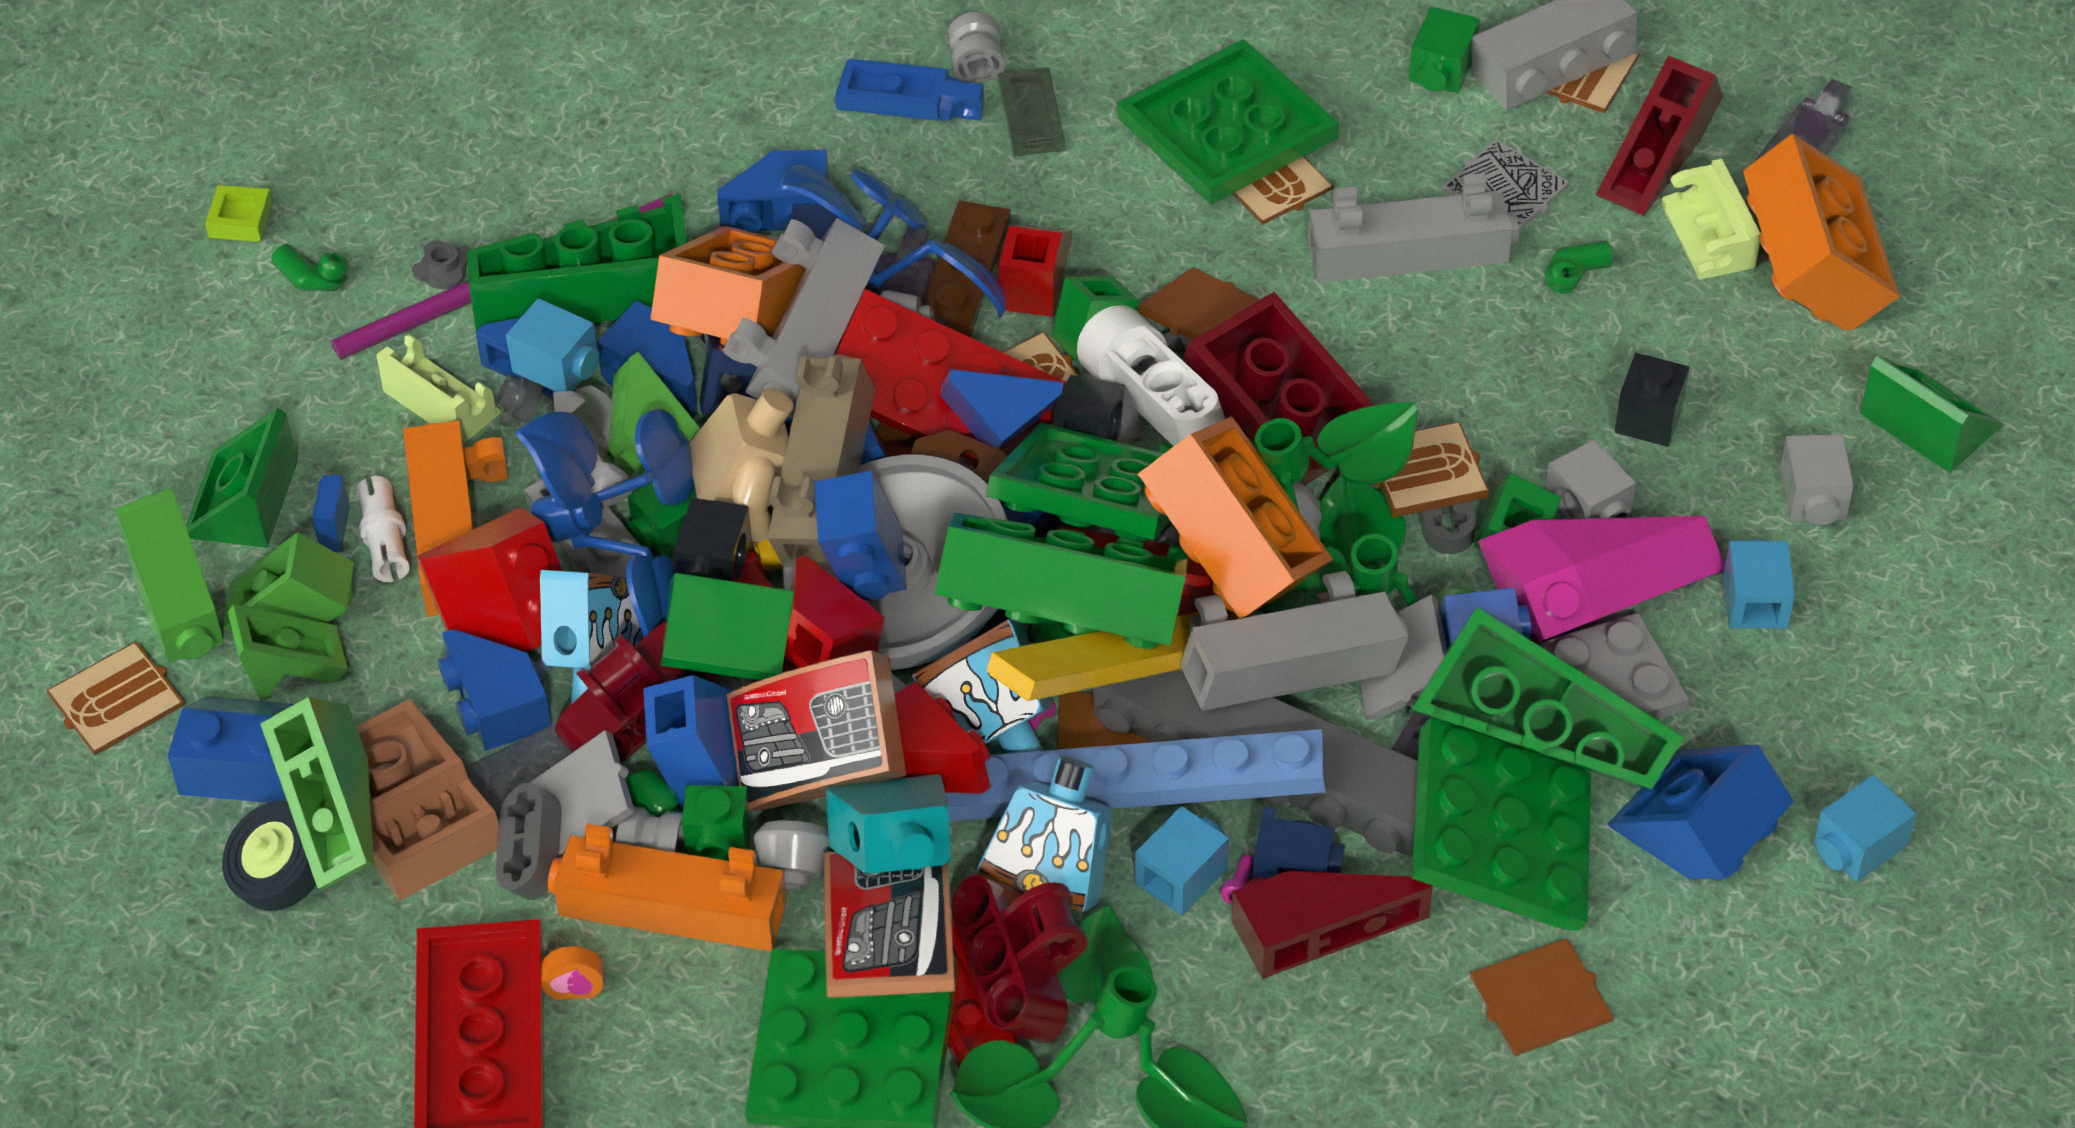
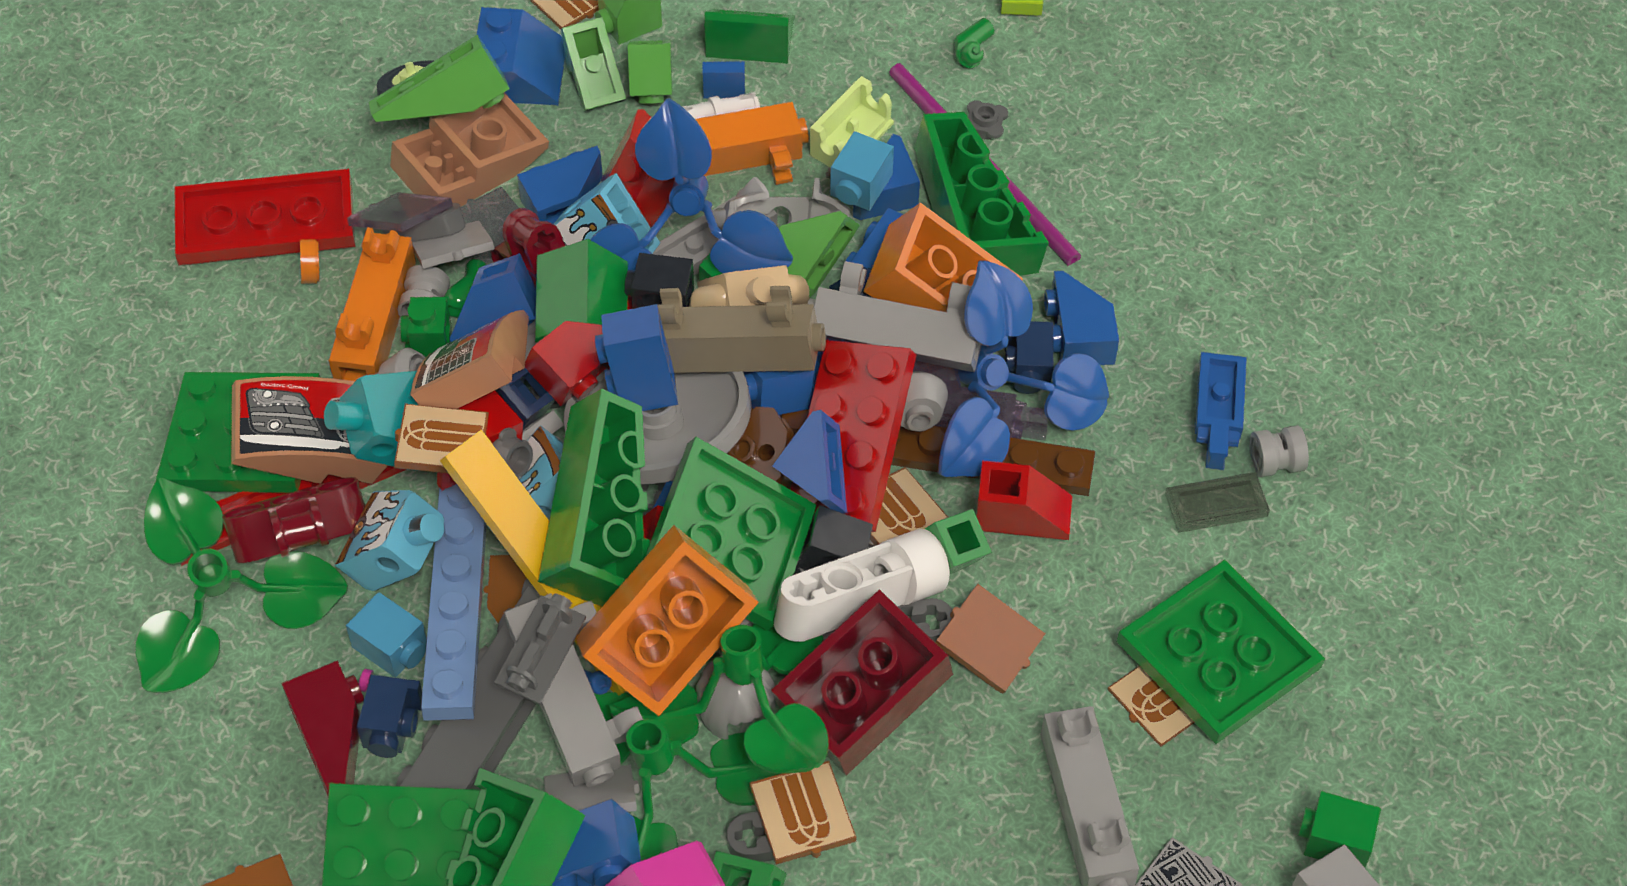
camera: 85 degrees right, 5 degrees up
(516, 855) = (400, 211): none -> piece
(952, 746) = (432, 433): none -> piece
(968, 692) = (515, 452): none -> dark grey plate
(1282, 641) = (541, 648): none -> dark grey hinge

